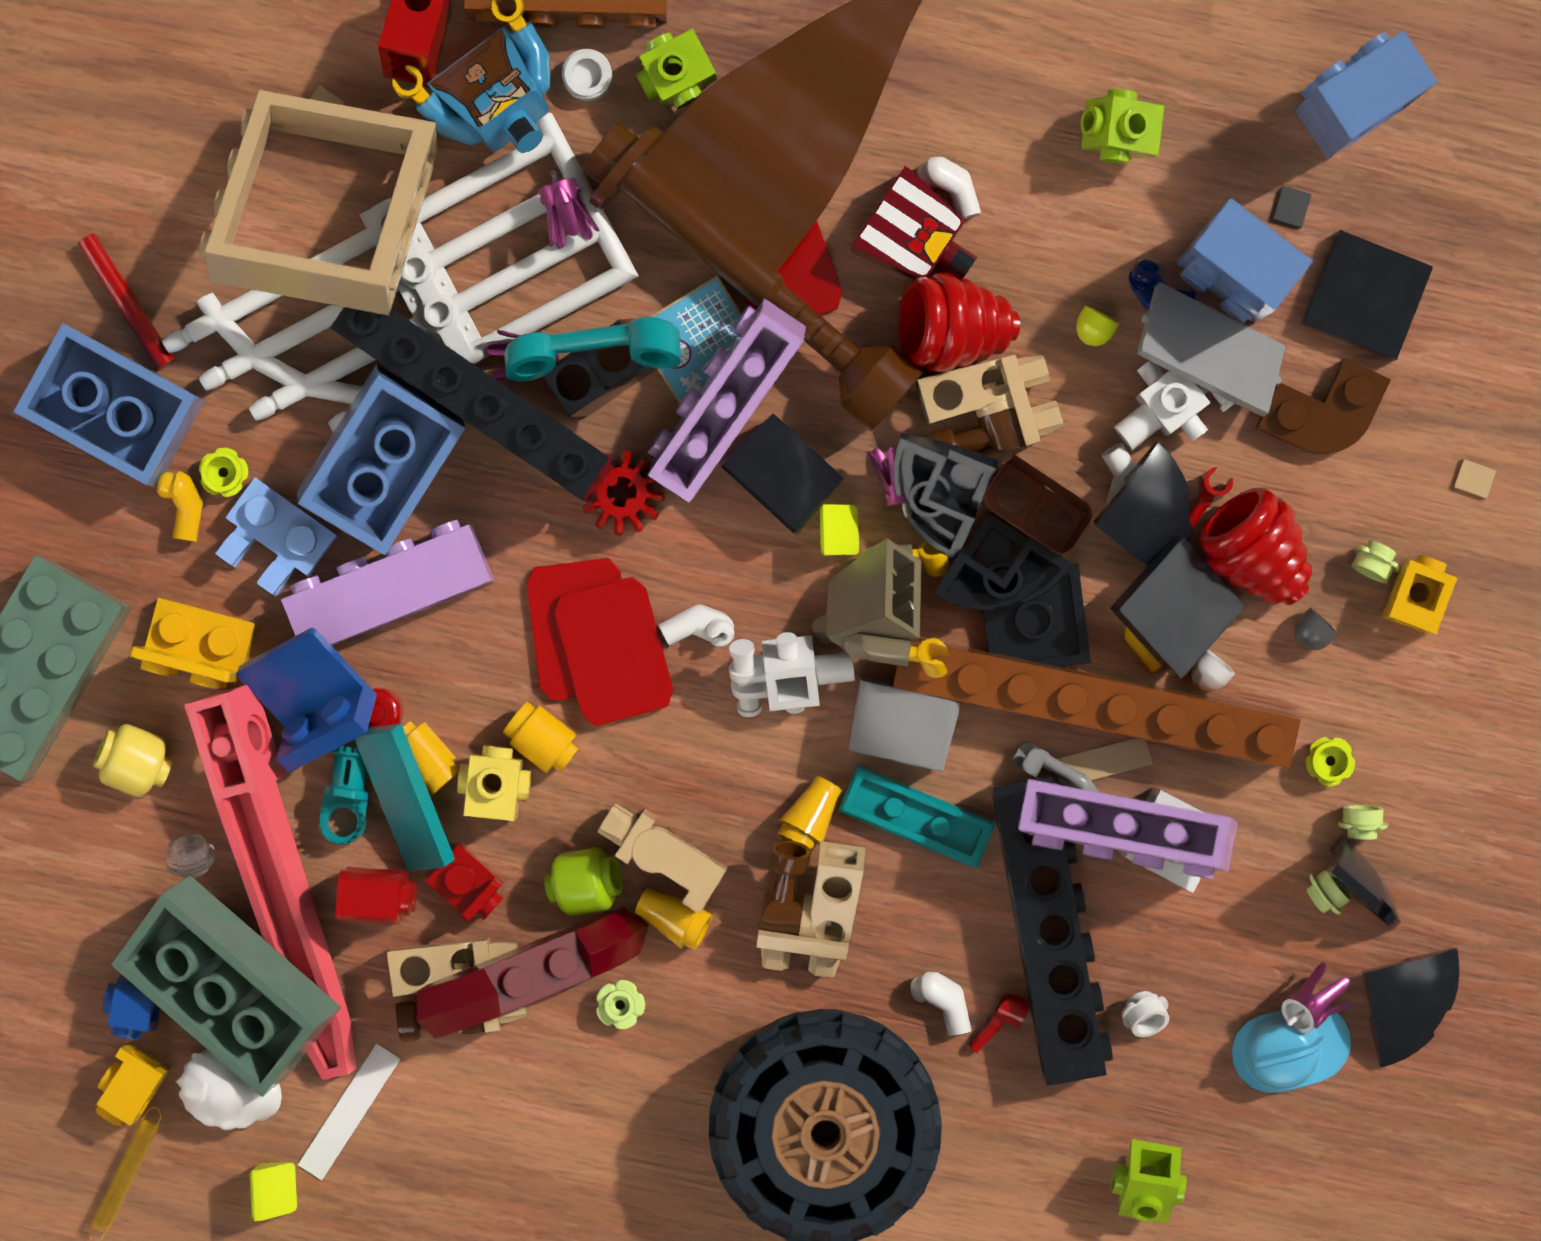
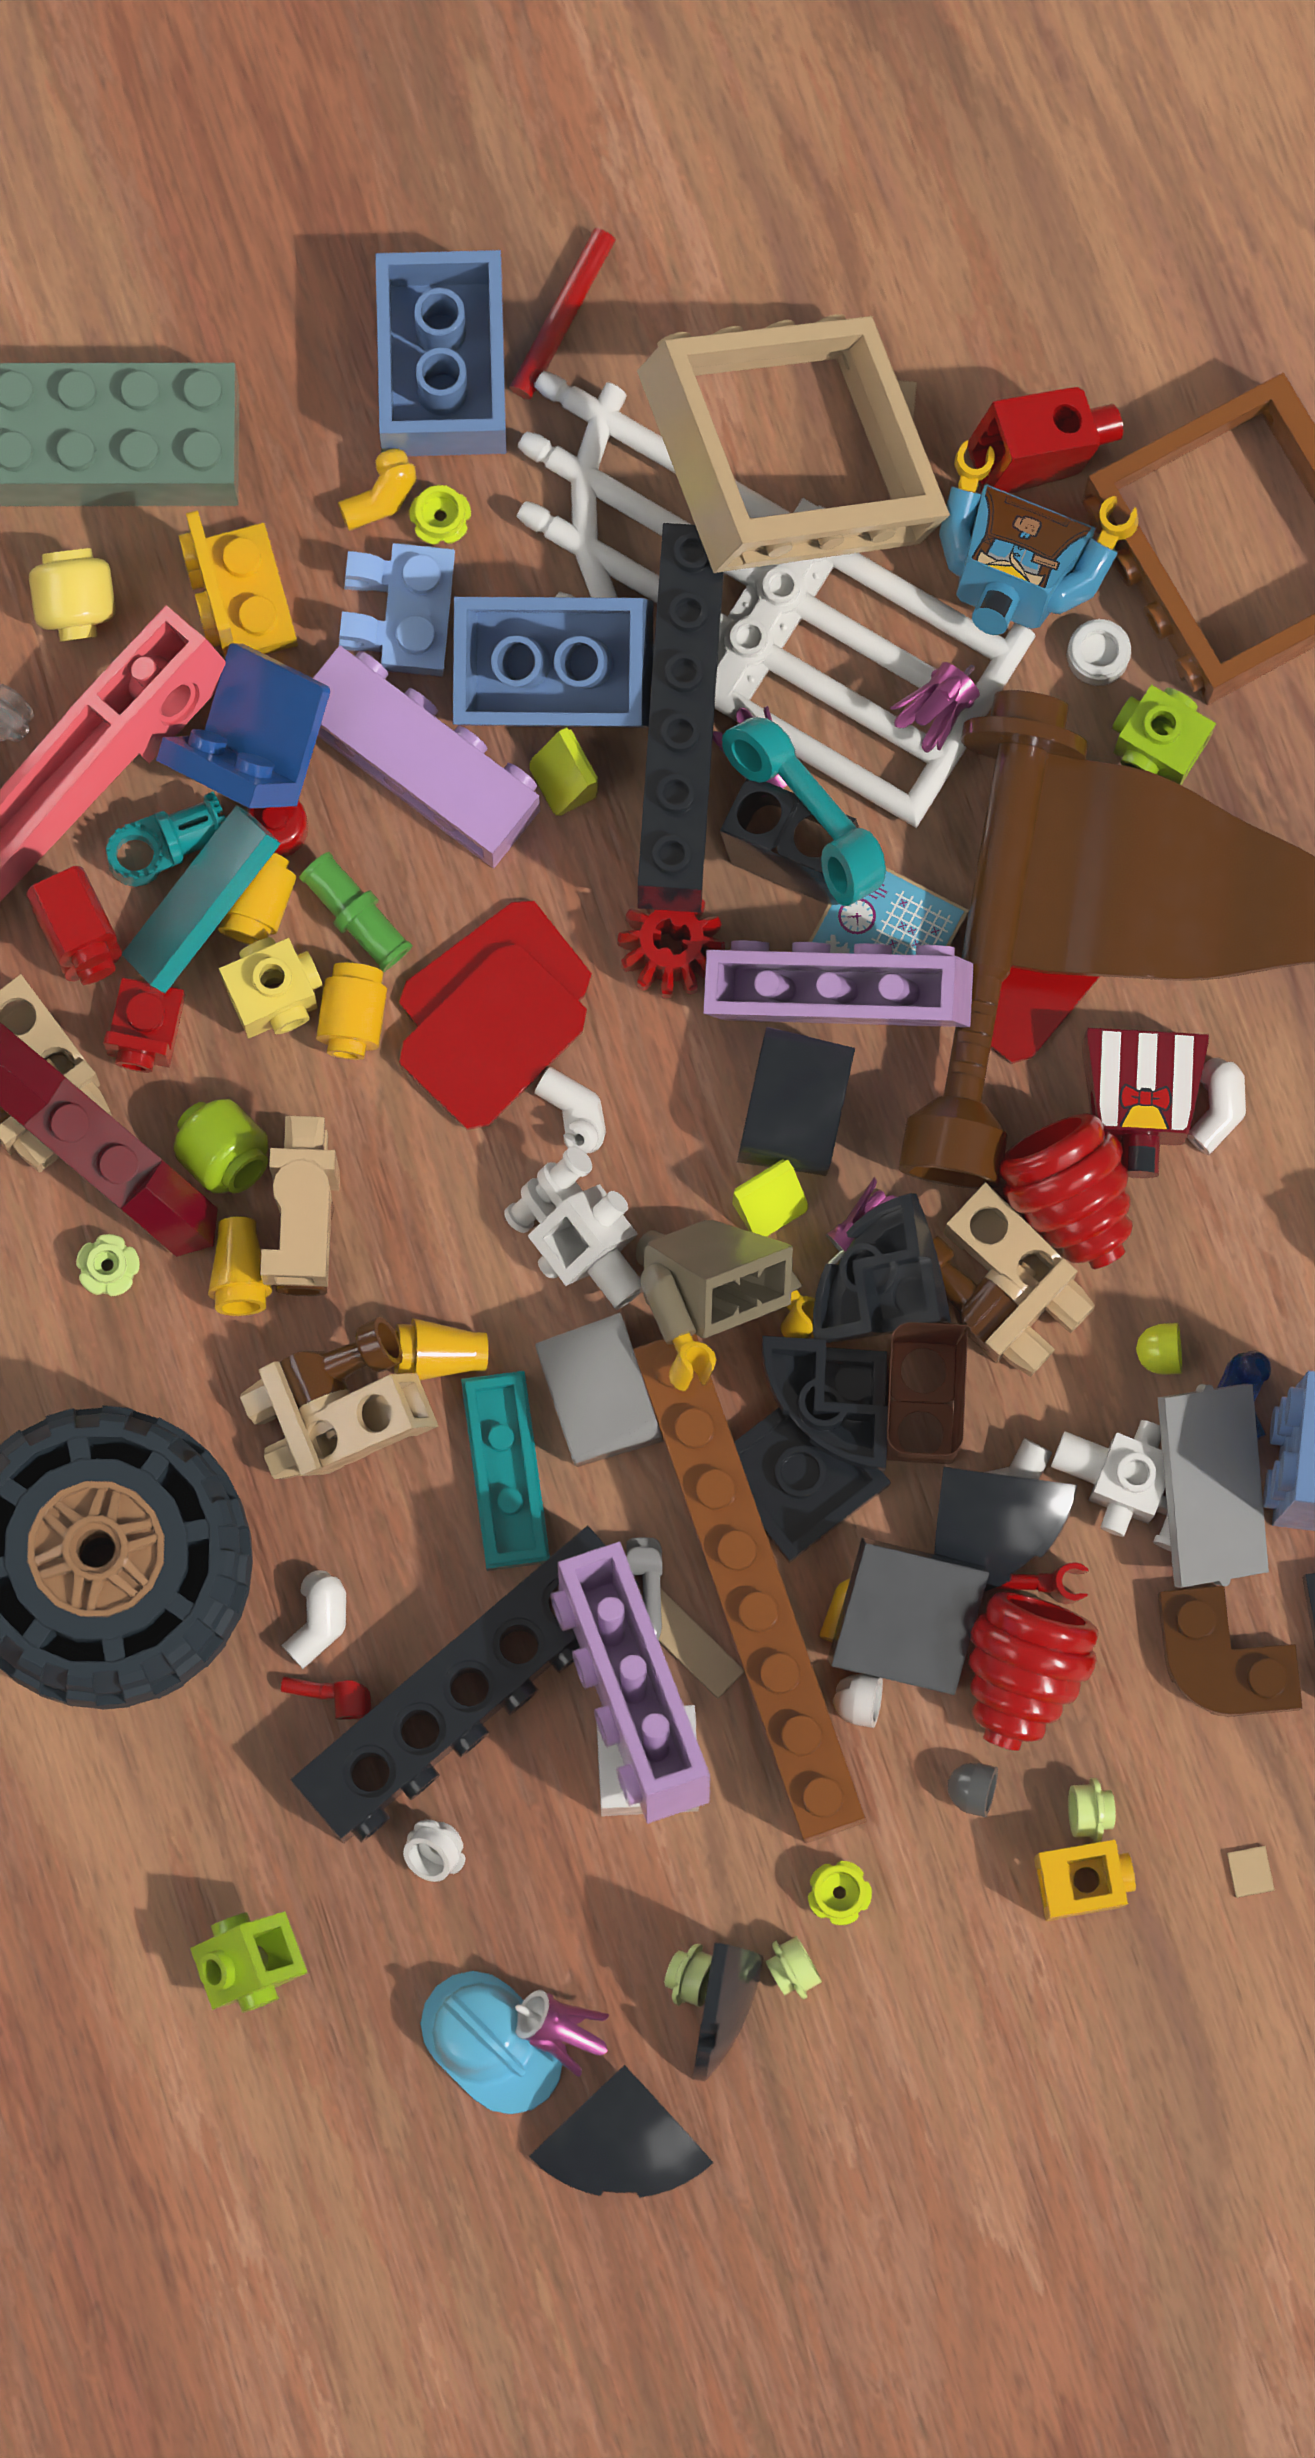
camera: 55 degrees right, 10 degrees down
(458, 495) = (564, 773): none -> neon yellow slope
(472, 694) = (355, 911): none -> bright green pin

